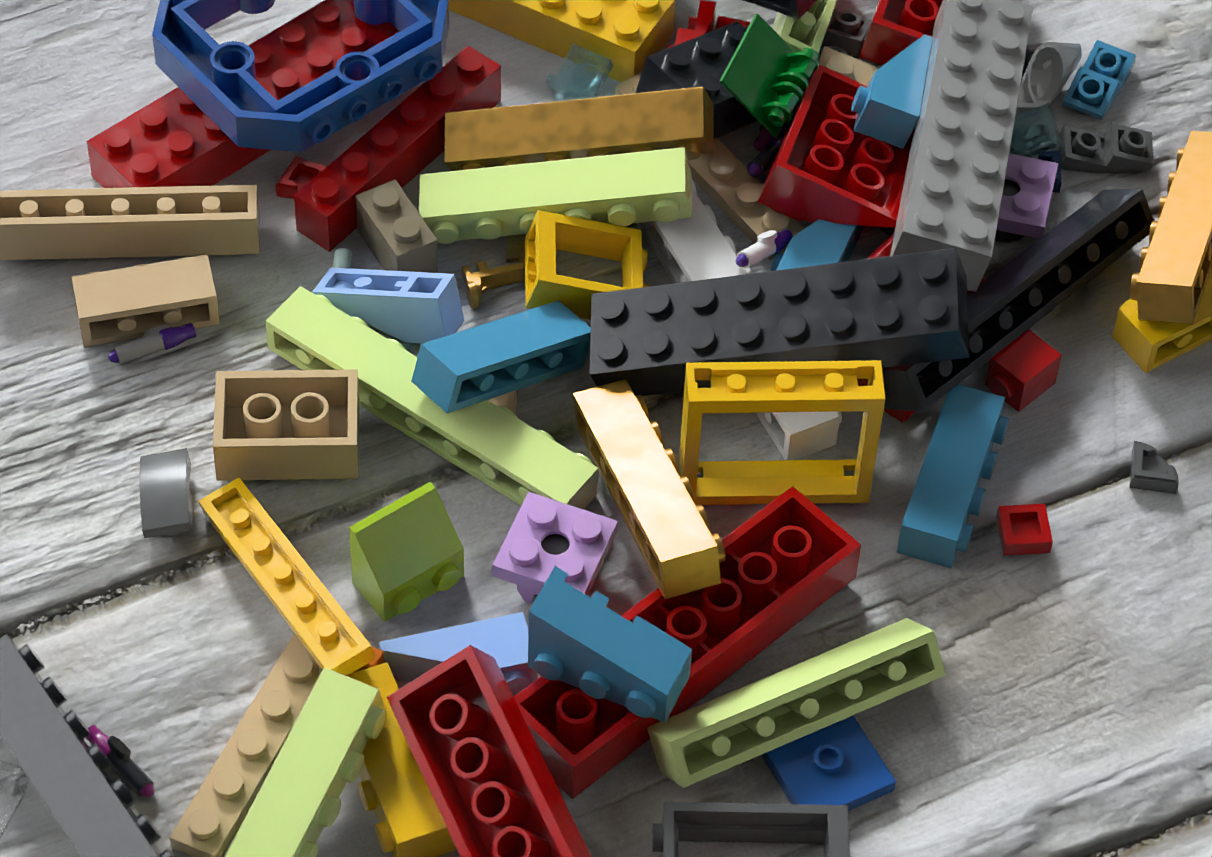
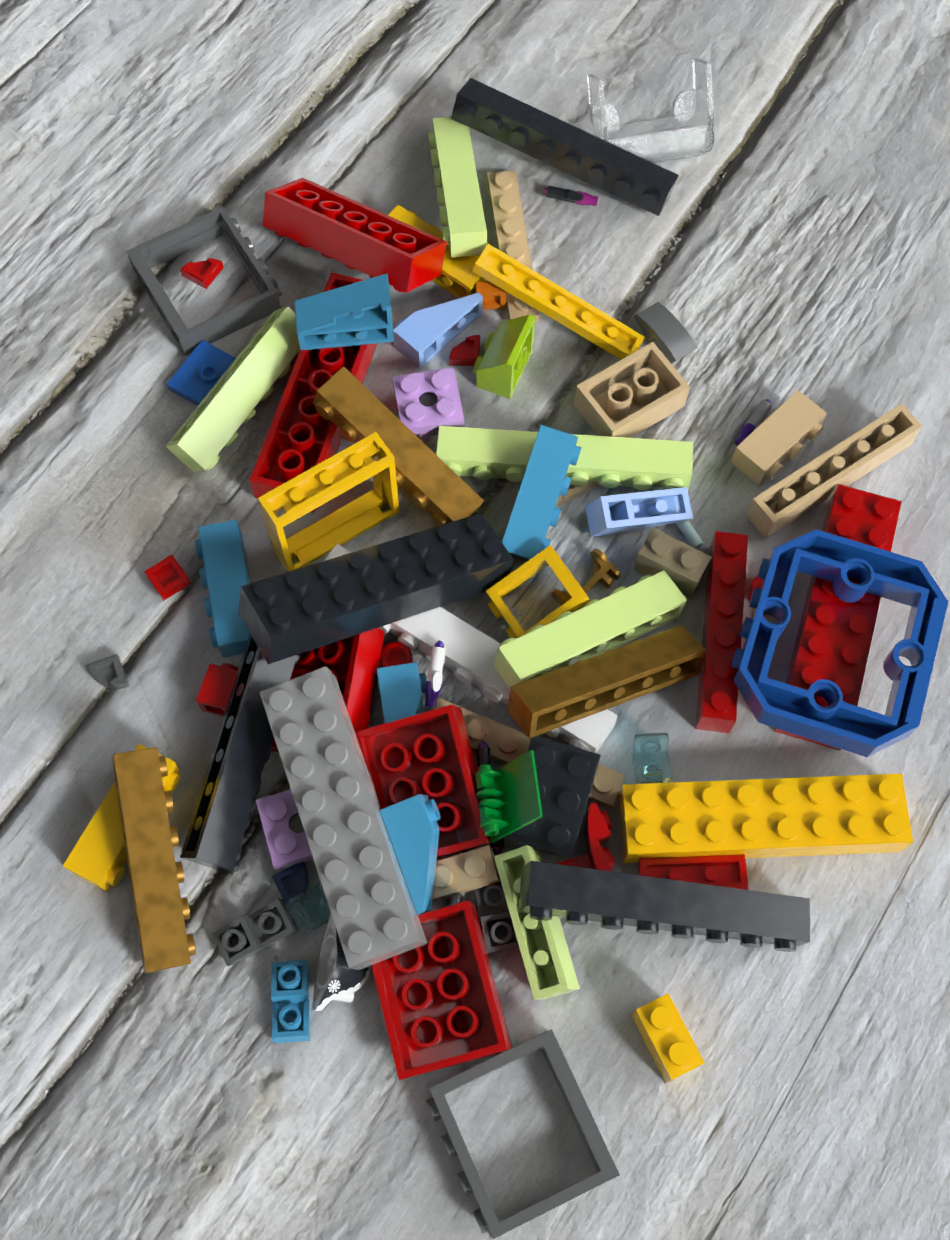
camera: 150 degrees right, 15 degrees up
(443, 613) = (466, 352): none -> red tile

